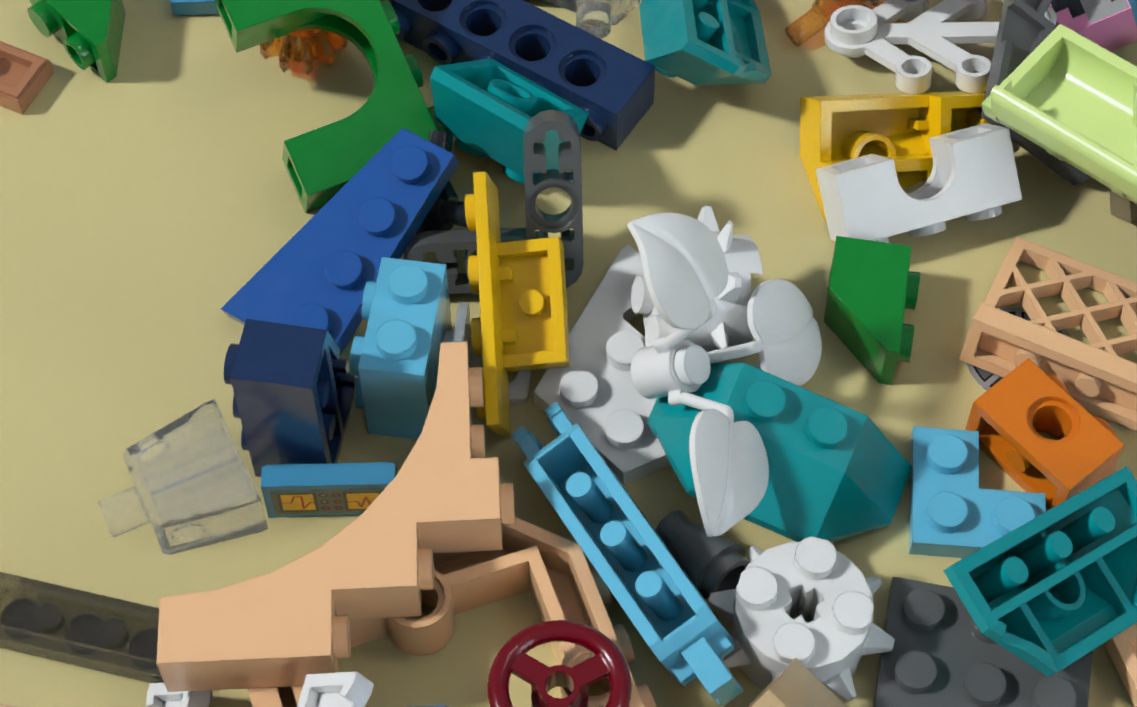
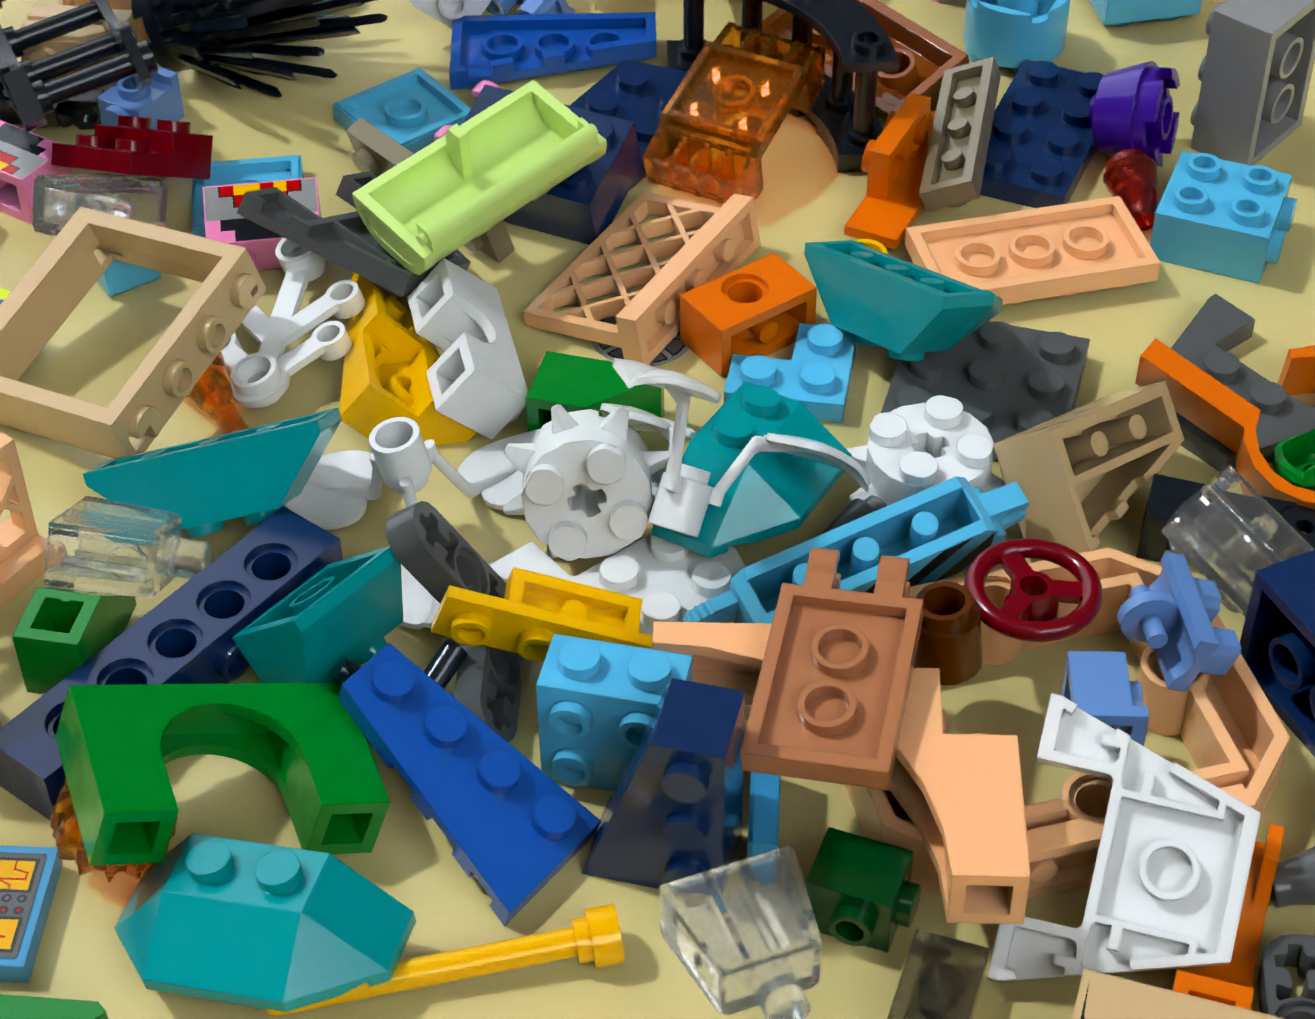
camera: 85 degrees left, 15 degrees down
(185, 138) = (260, 925): none -> teal wedge
(195, 371) = (589, 939): none -> yellow piece
(235, 553) = (862, 889): none -> dark green brick
(396, 490) = (835, 677): none -> nougat tile
(492, 605) = (950, 632): none -> reddish brown brick
(710, 129) = (401, 460): none -> white plant

